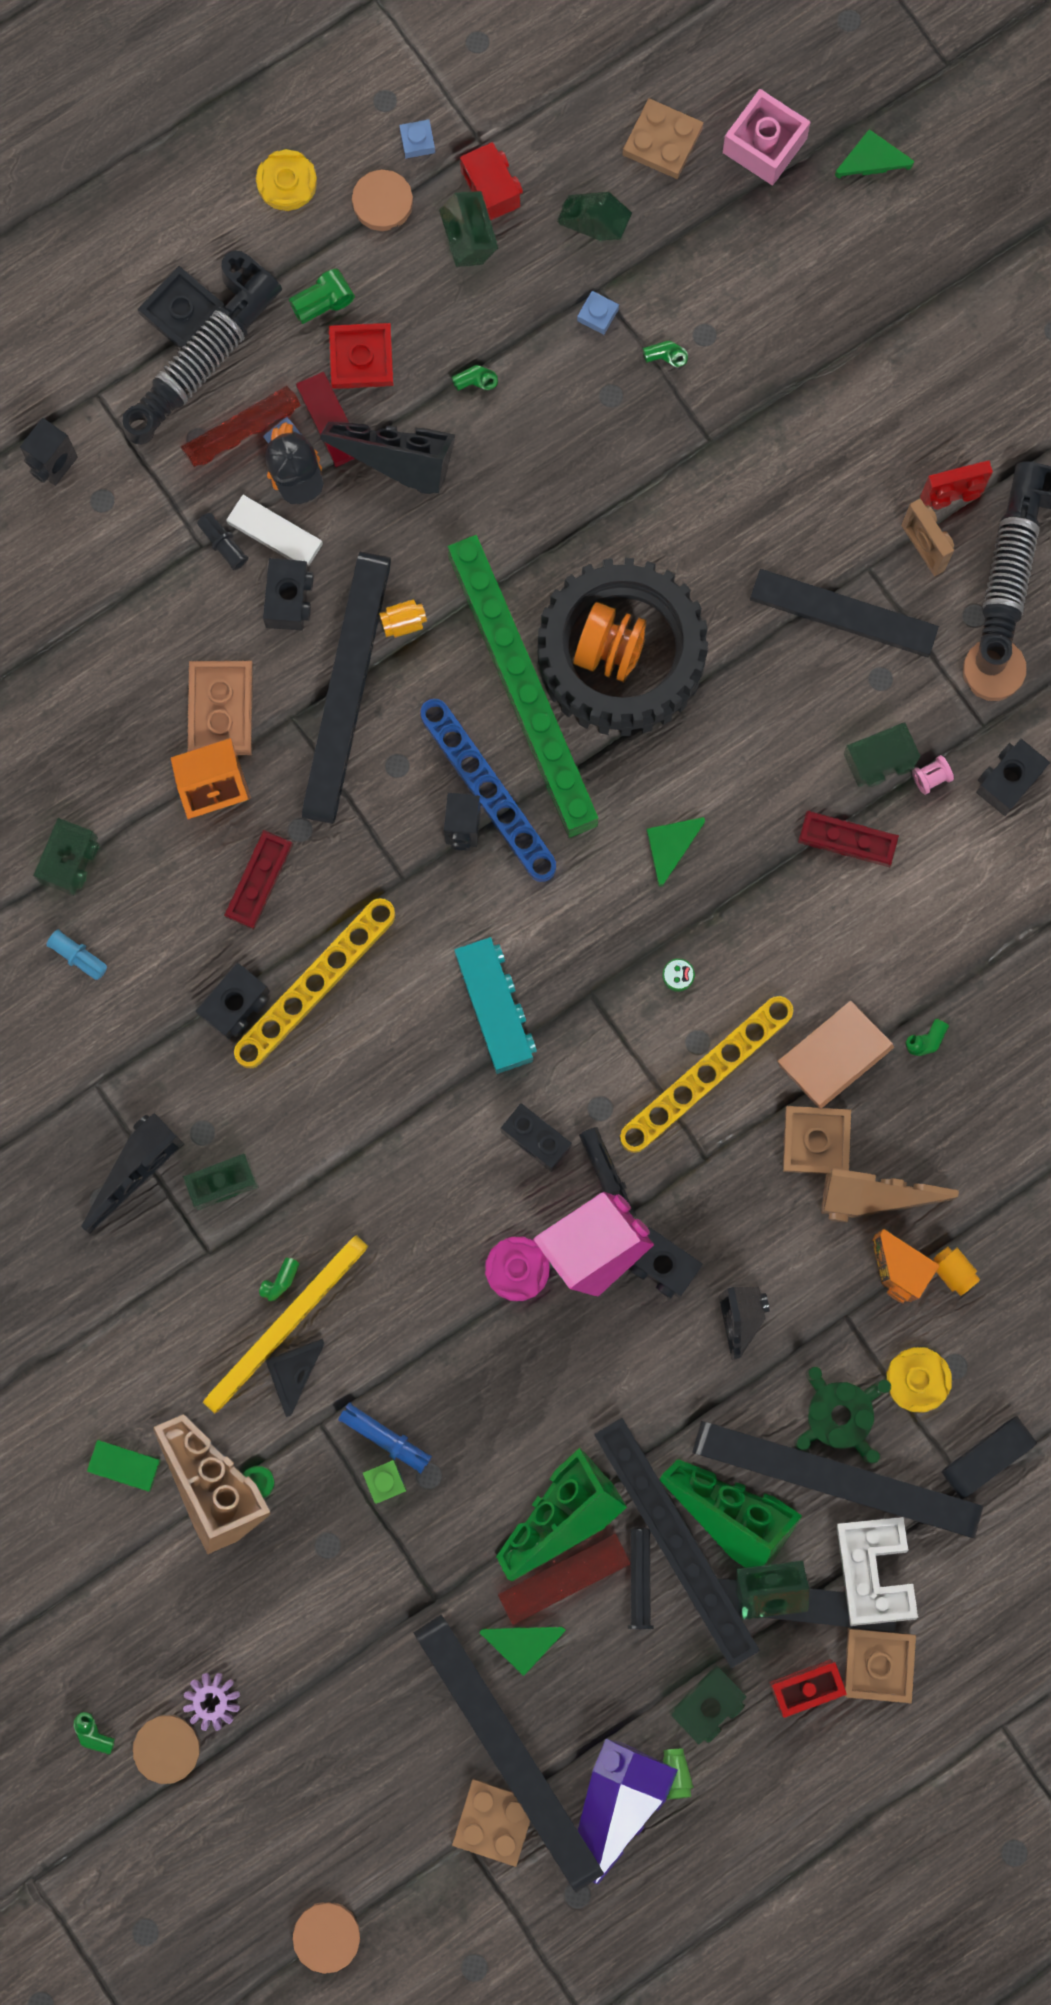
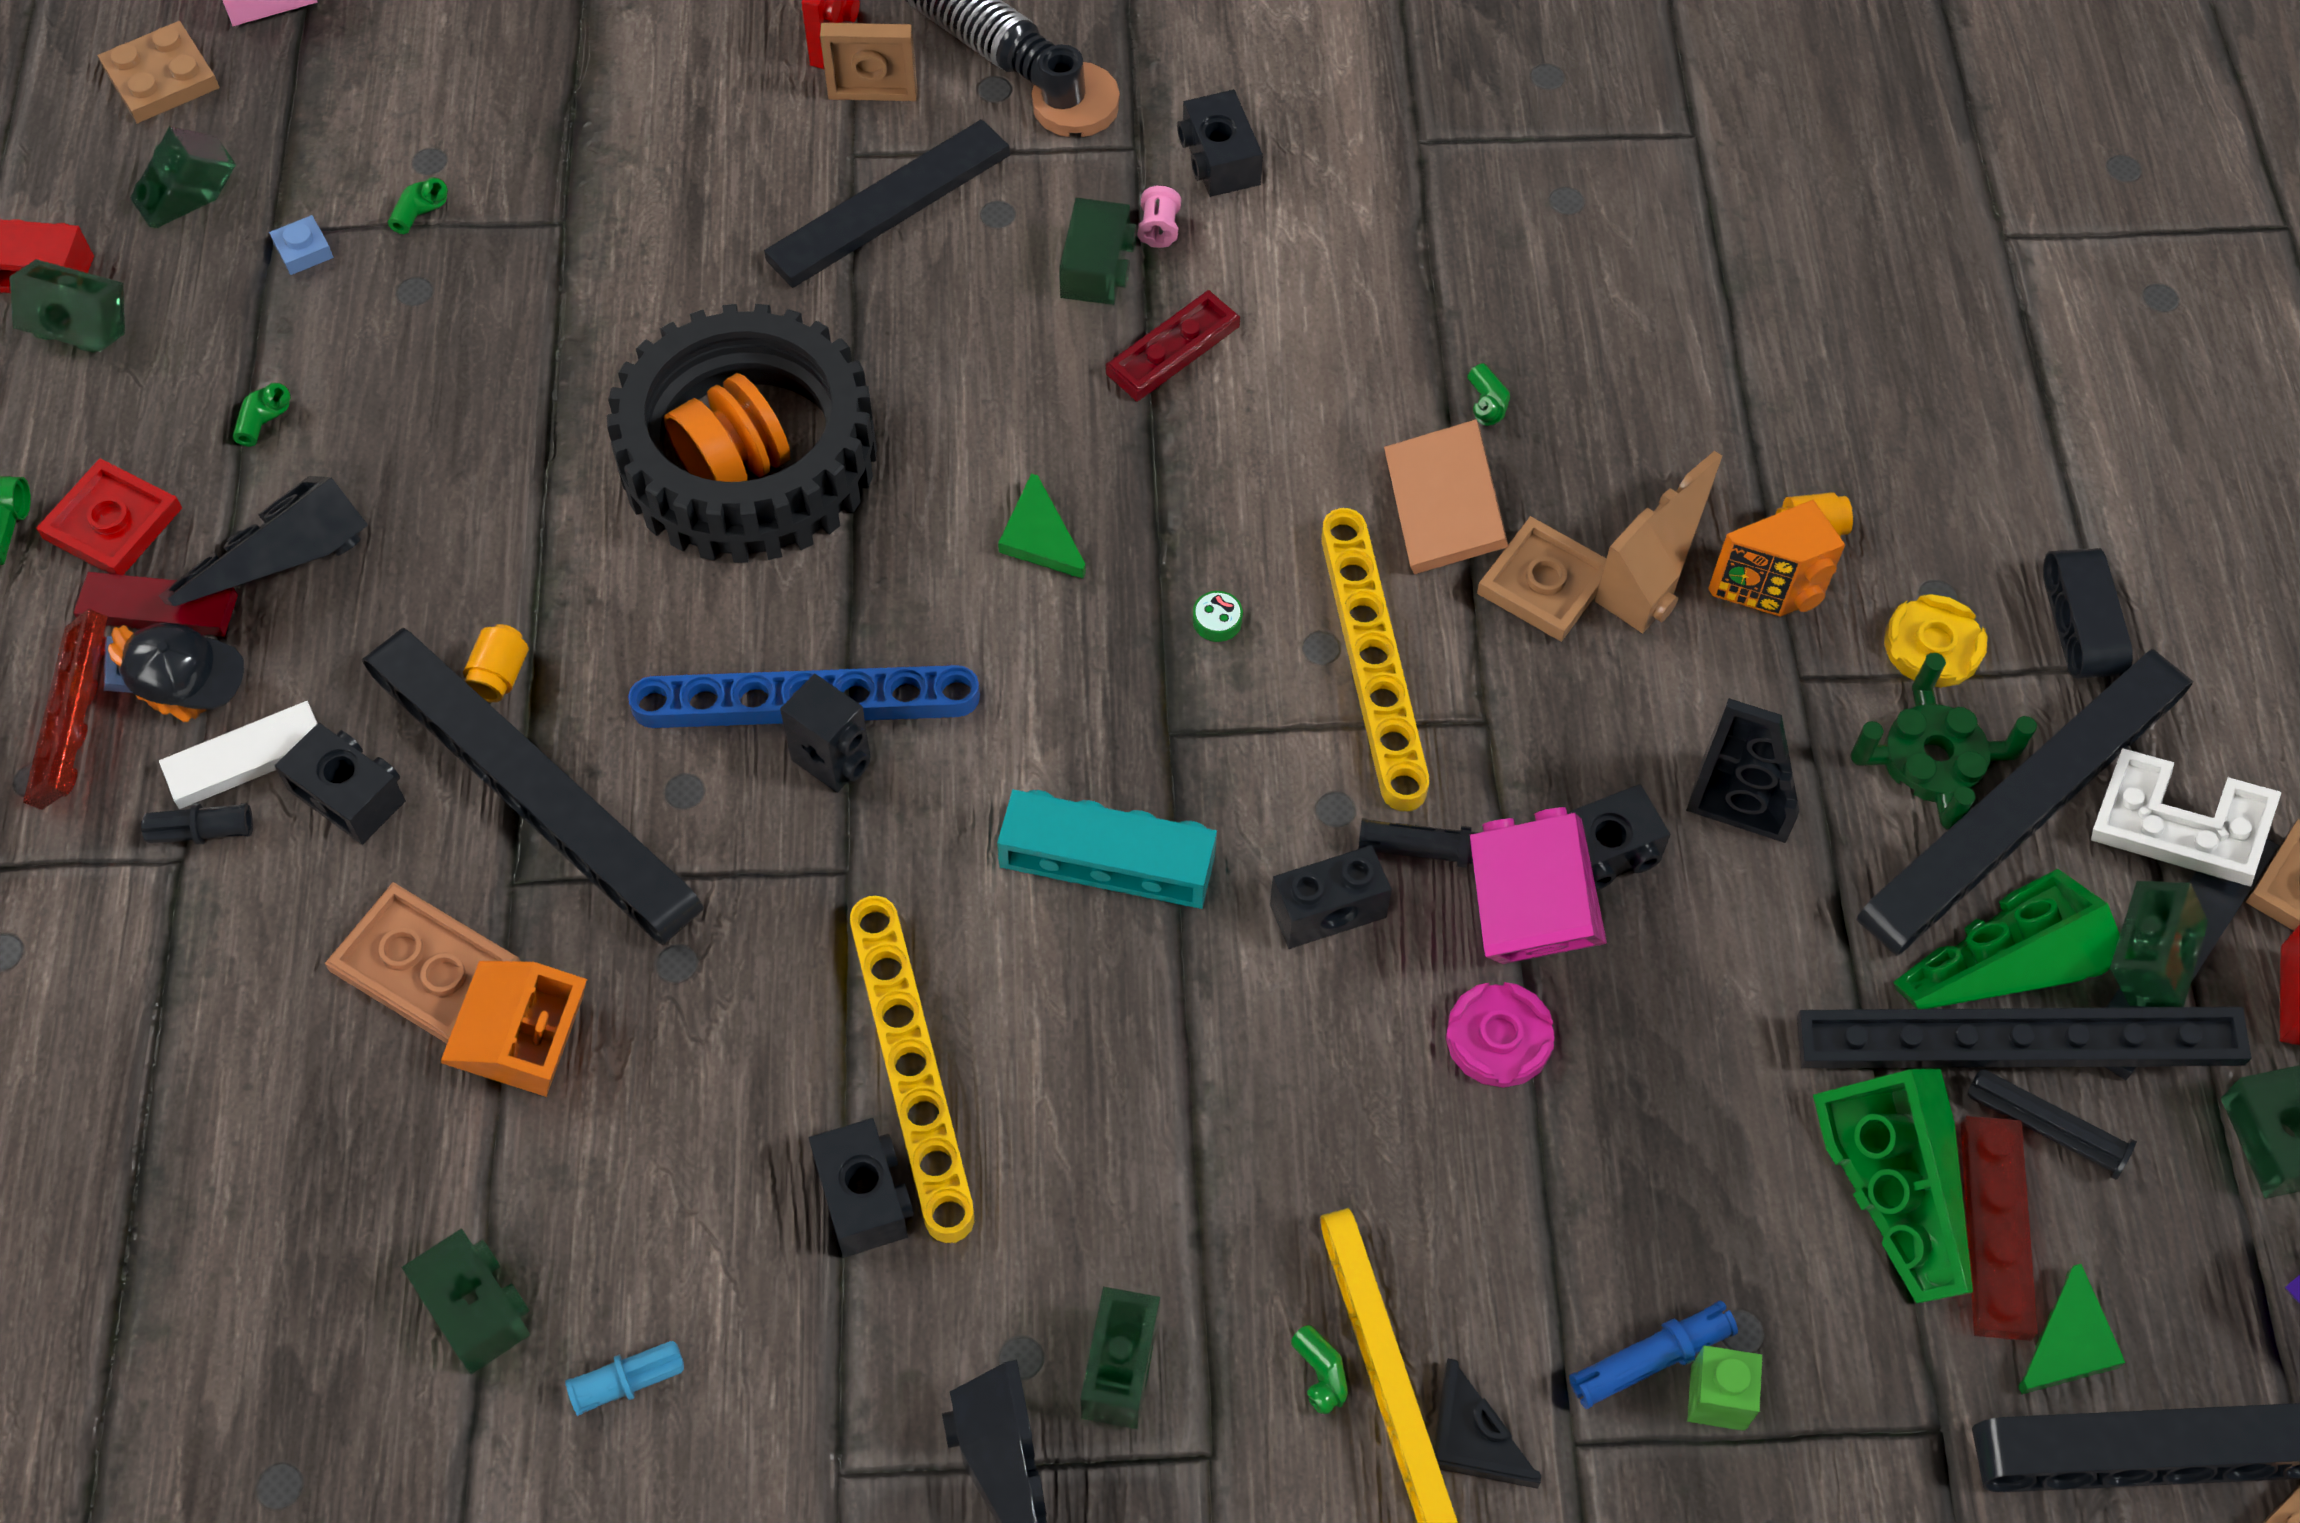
camera: 60 degrees left, 20 degrees down
(258, 879) = (706, 1056): dark red tile -> none
(522, 686) = (701, 573): green brick -> none

